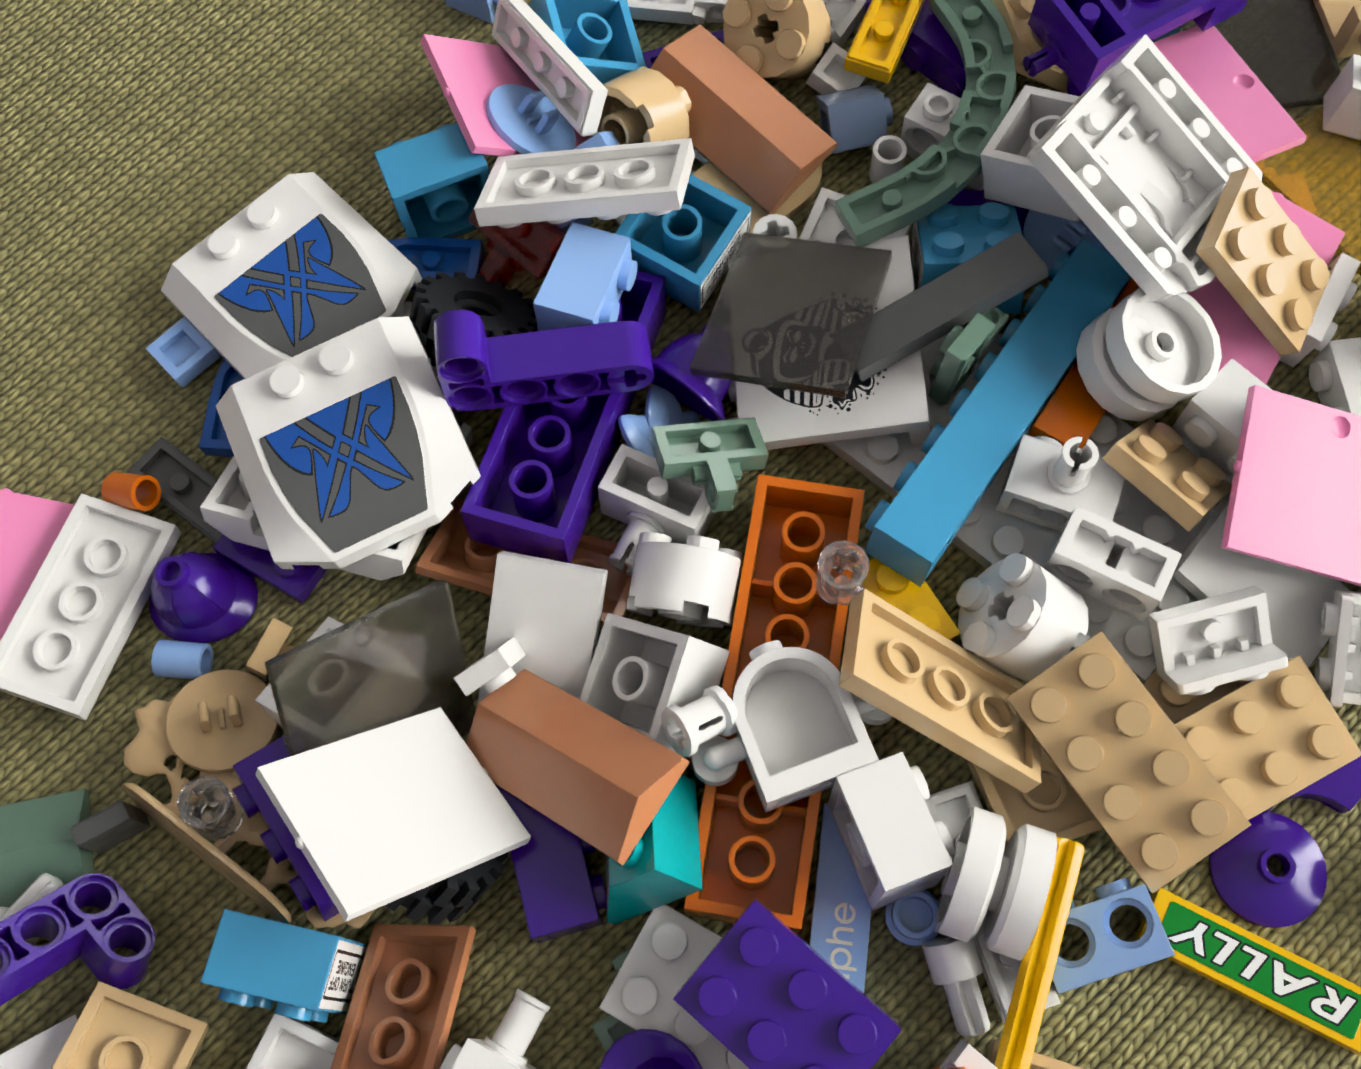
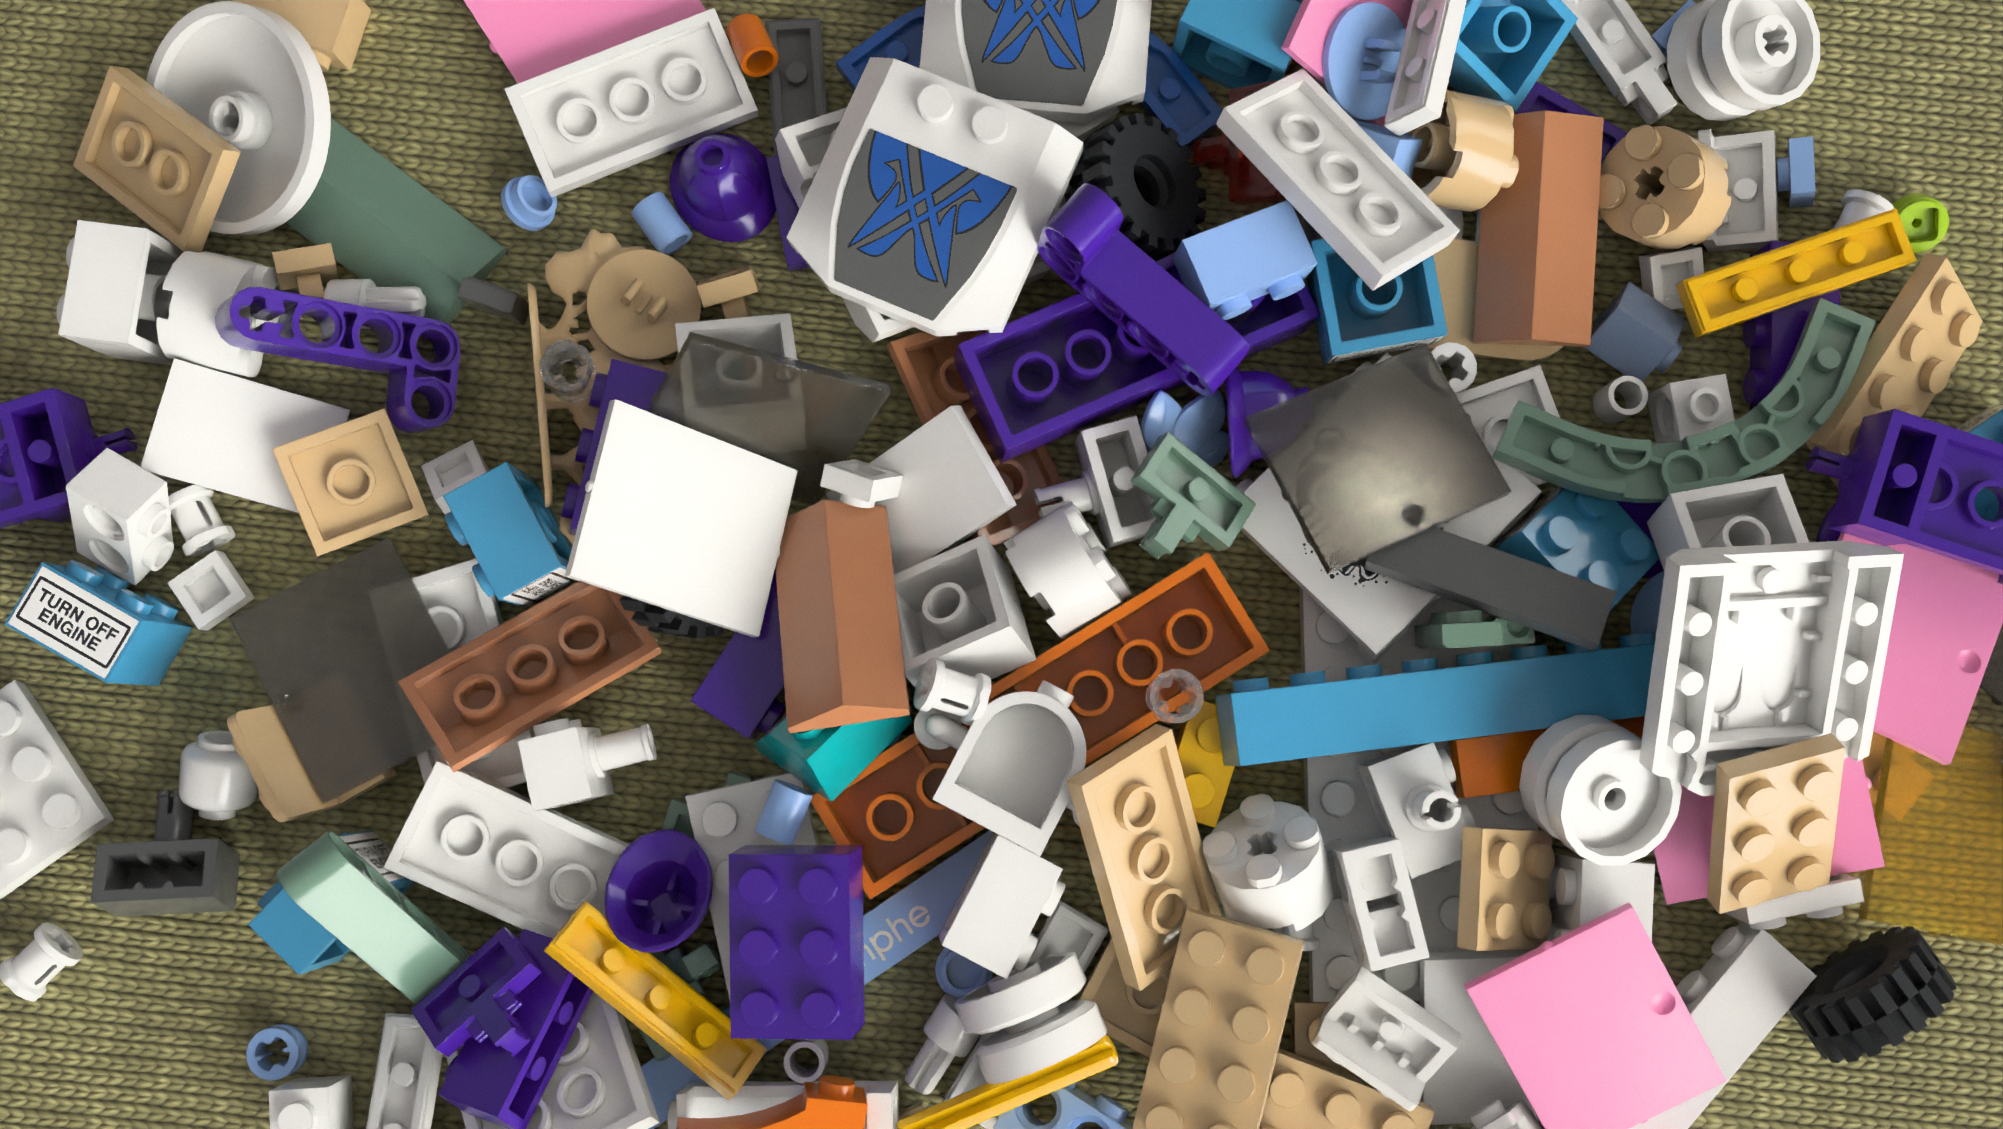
camera: 40 degrees right, 15 degrees up
(72, 739) = (528, 202): none -> light blue plate
(189, 975) = (453, 471): none -> white plate
(678, 934) = (783, 812): none -> light blue hinge

